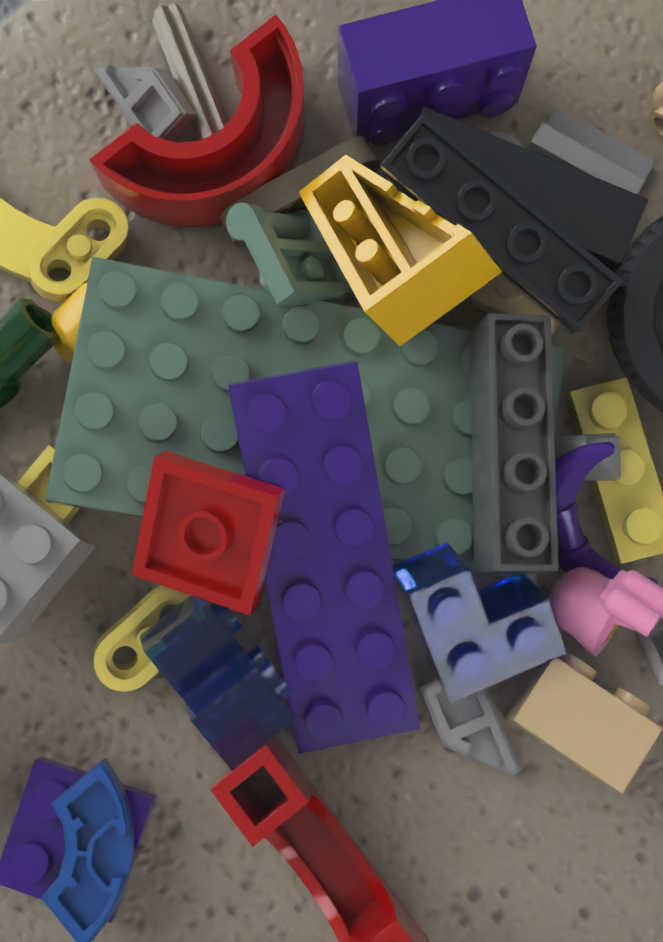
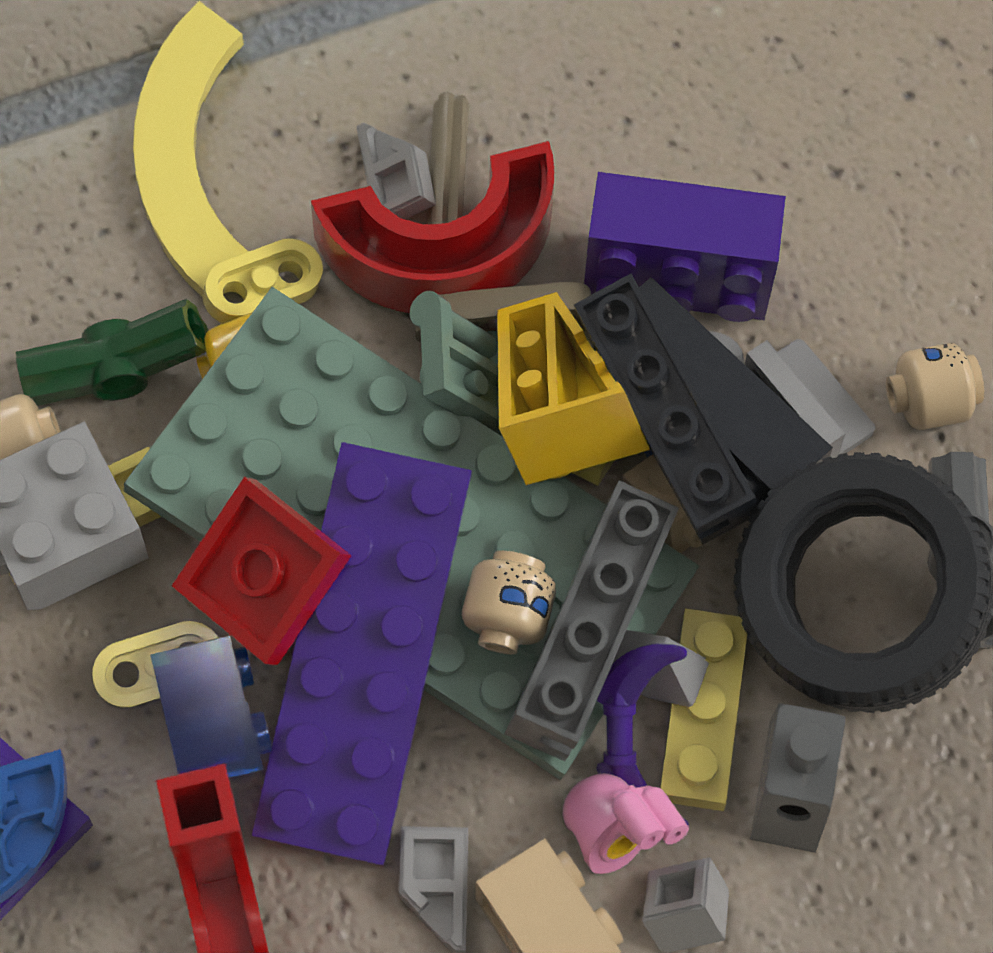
camera: 20 degrees right, 15 degrees down
(436, 463) = (509, 601): none -> tan head
(474, 634) = (470, 791): clear blue brick -> none

